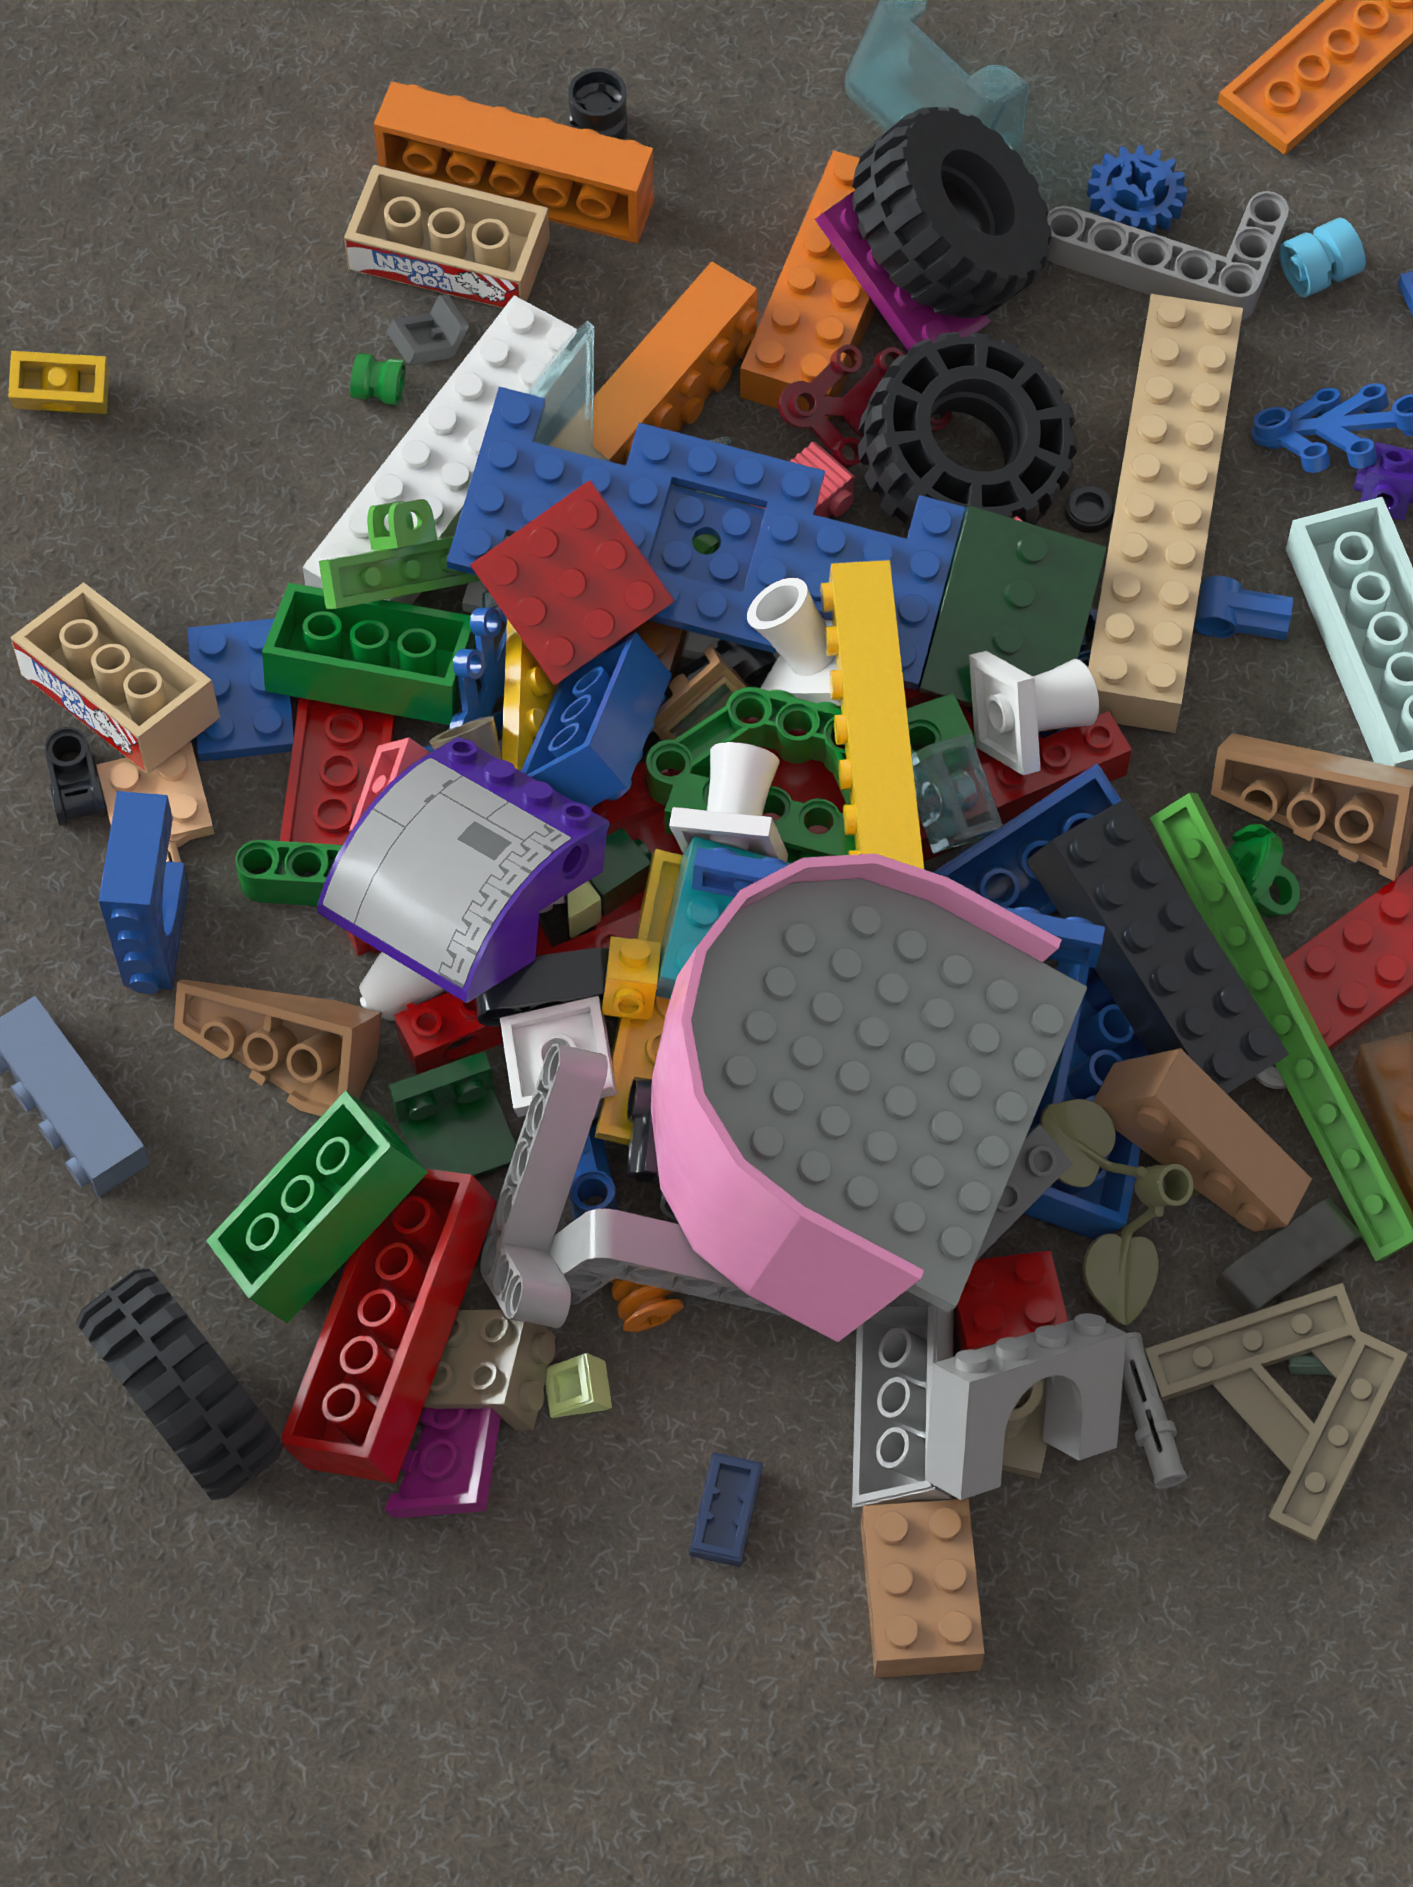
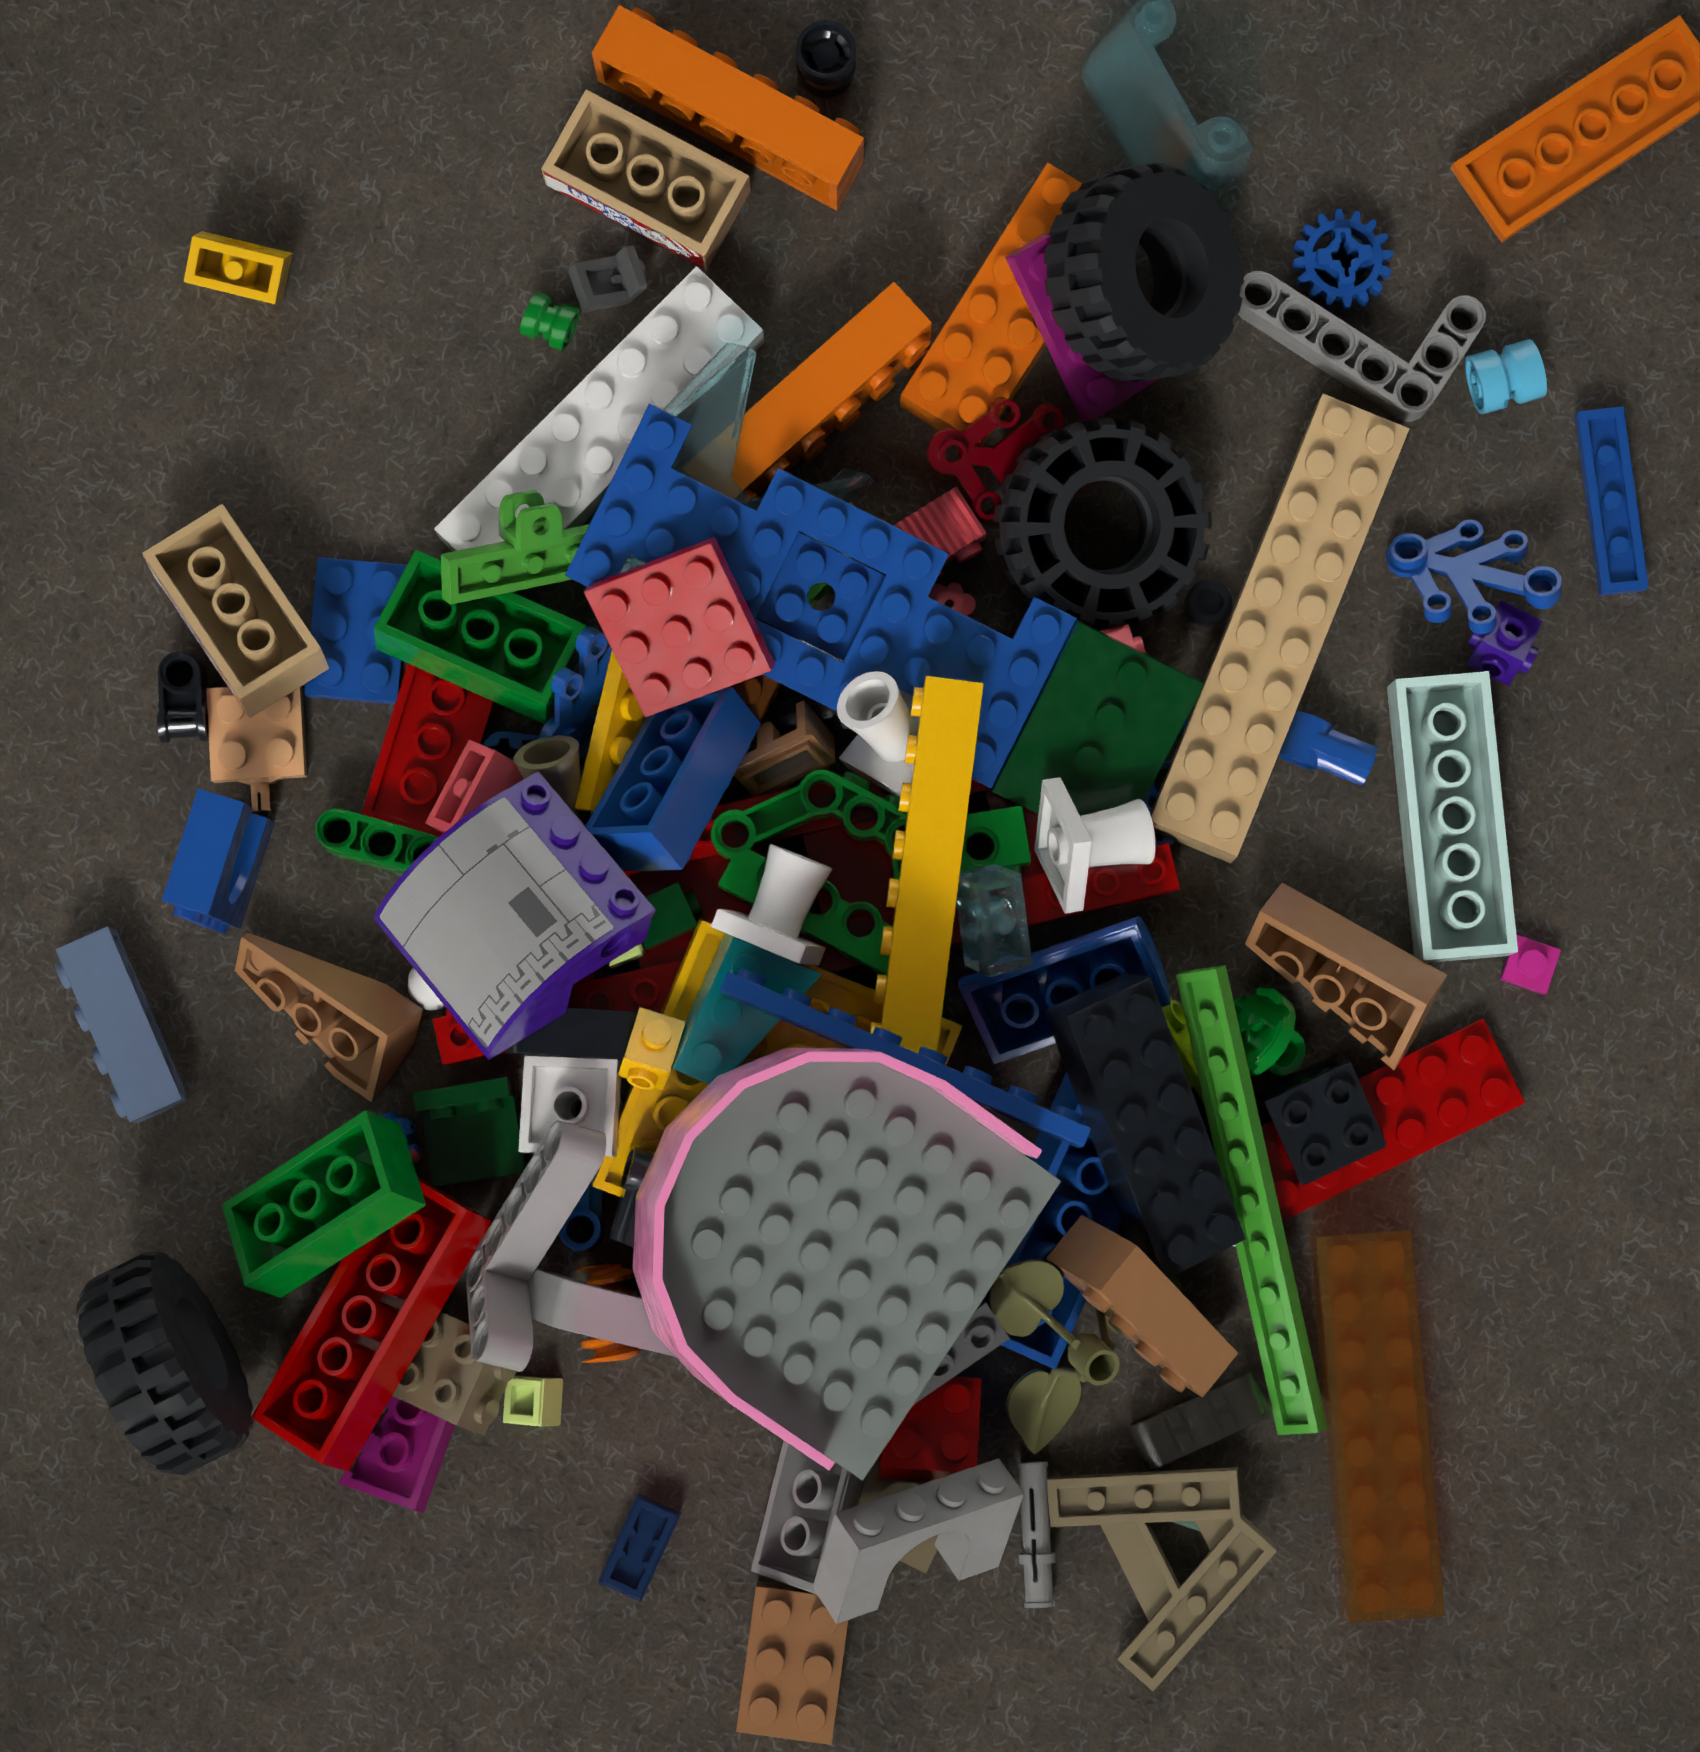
camera: 10 degrees right, 20 degrees up
(1338, 941) = (1321, 1117): none -> black bracket

